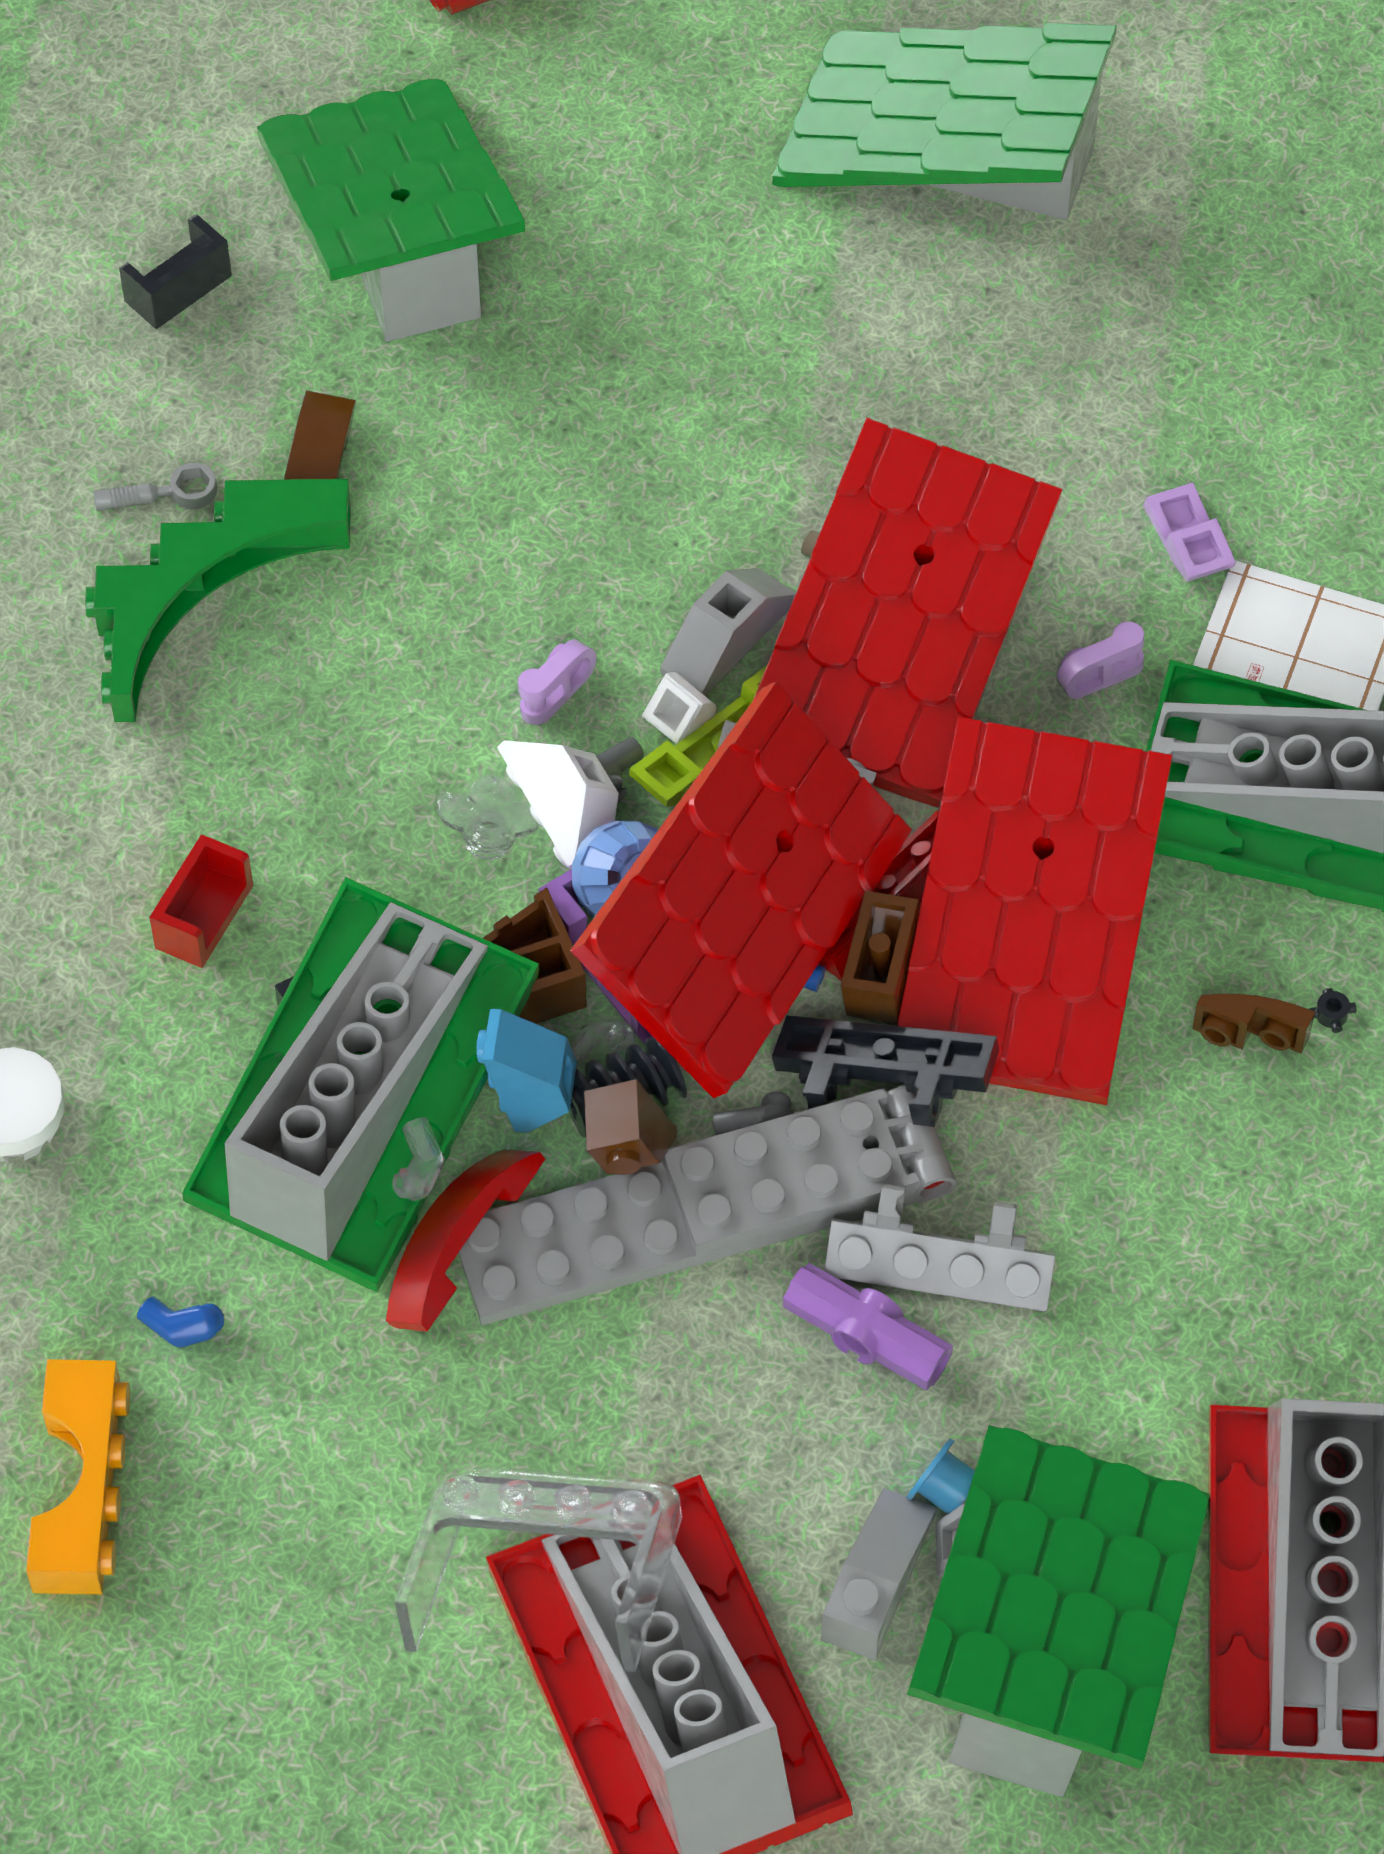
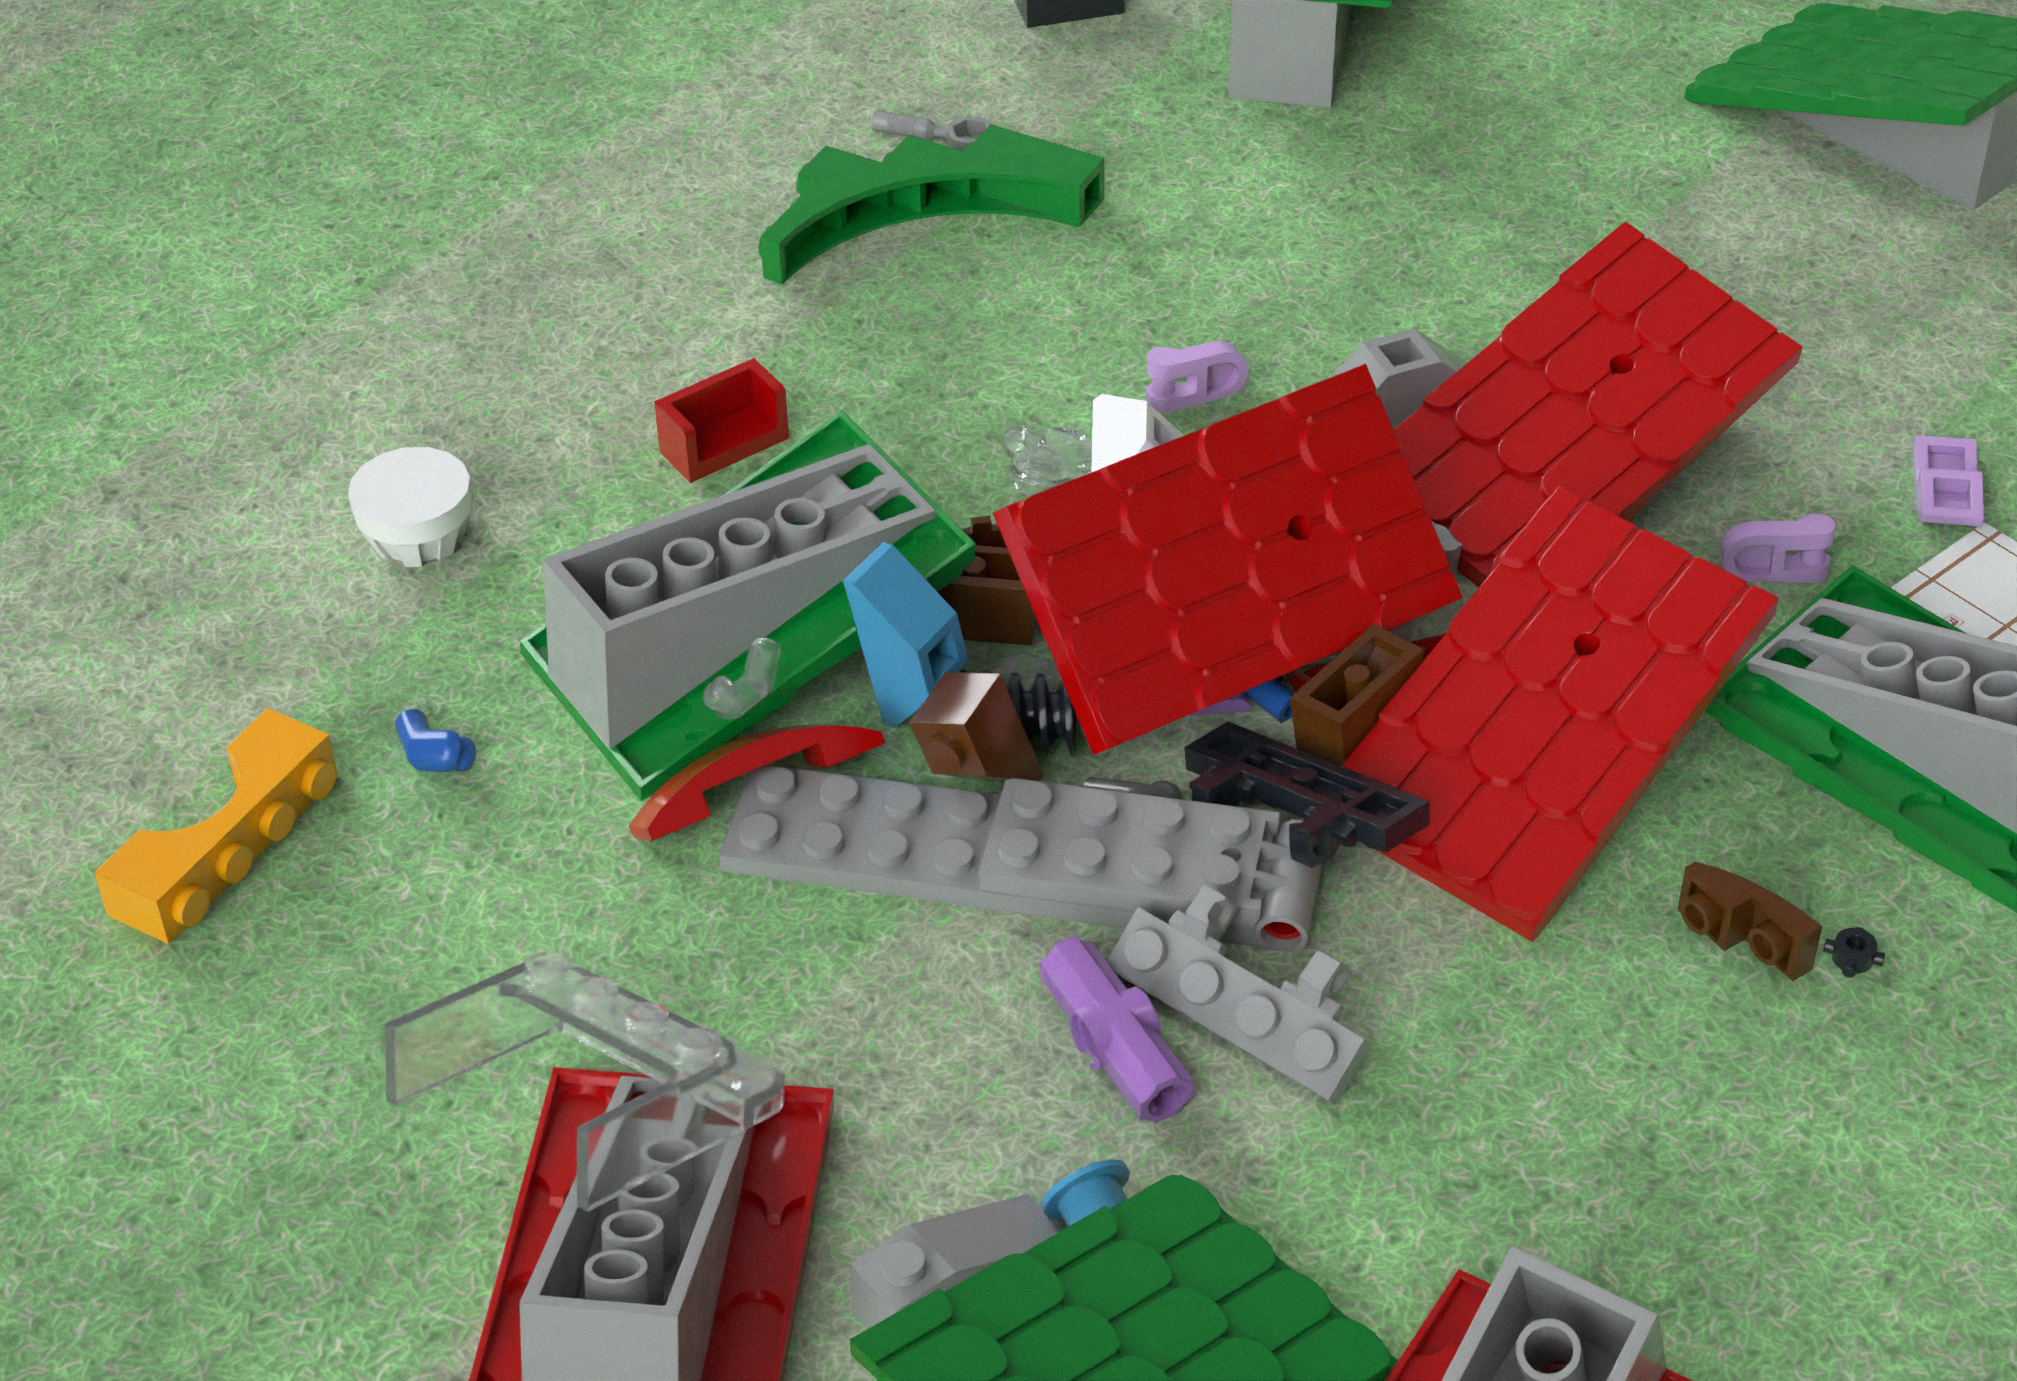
camera: 30 degrees right, 15 degrees down
(320, 437) = (1113, 130): reddish brown slope -> none

